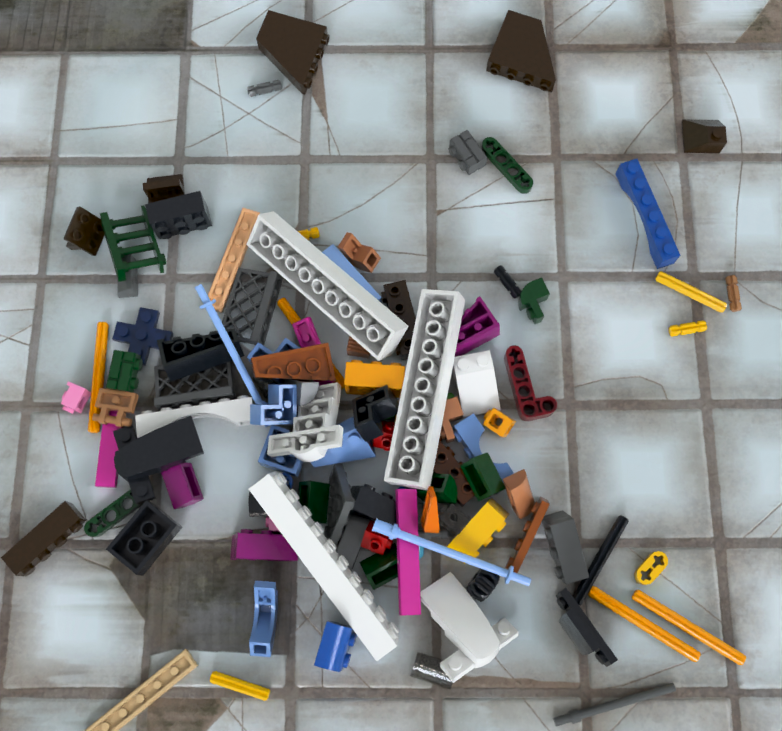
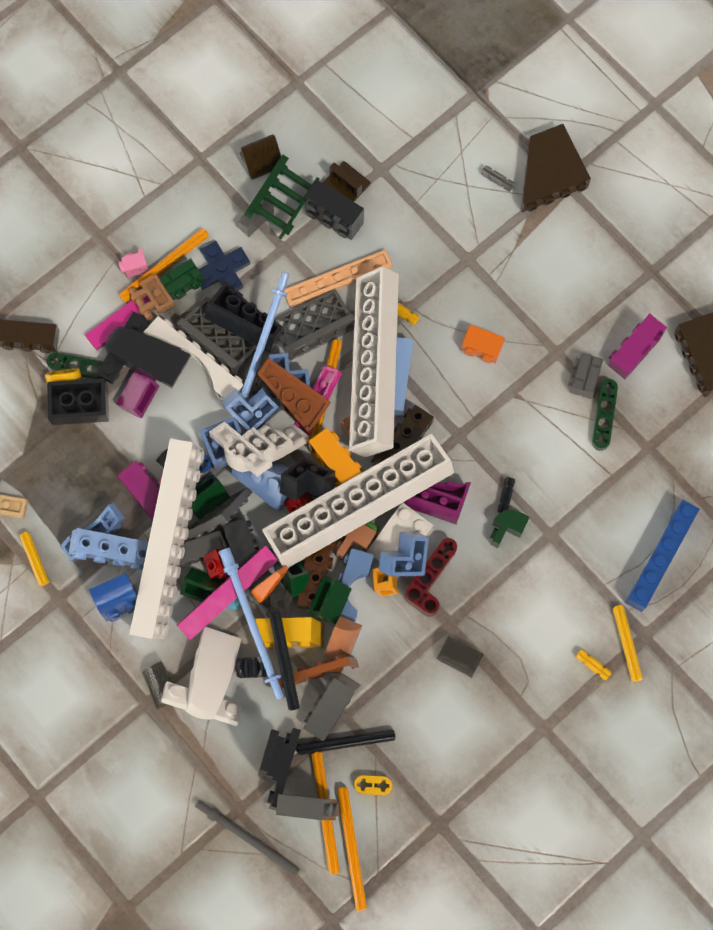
camera: 45 degrees right, 0 degrees up
(112, 531) = (63, 375): none -> yellow beam
(288, 616) = (108, 548): none -> light blue brick
(358, 255) = (424, 365): nougat brick -> none
(379, 201) = (482, 344): none -> orange brick
(477, 101) = (637, 346): none -> magenta wedge
(501, 389) = (410, 557): none -> medium blue brick
(502, 553) = (284, 661): none -> black axle
(604, 417) = (460, 656): none -> clear smoke brick
(635, 635) = (307, 807): none -> dark grey brick
(733, 293) = (656, 678): medium nougat axle -> none

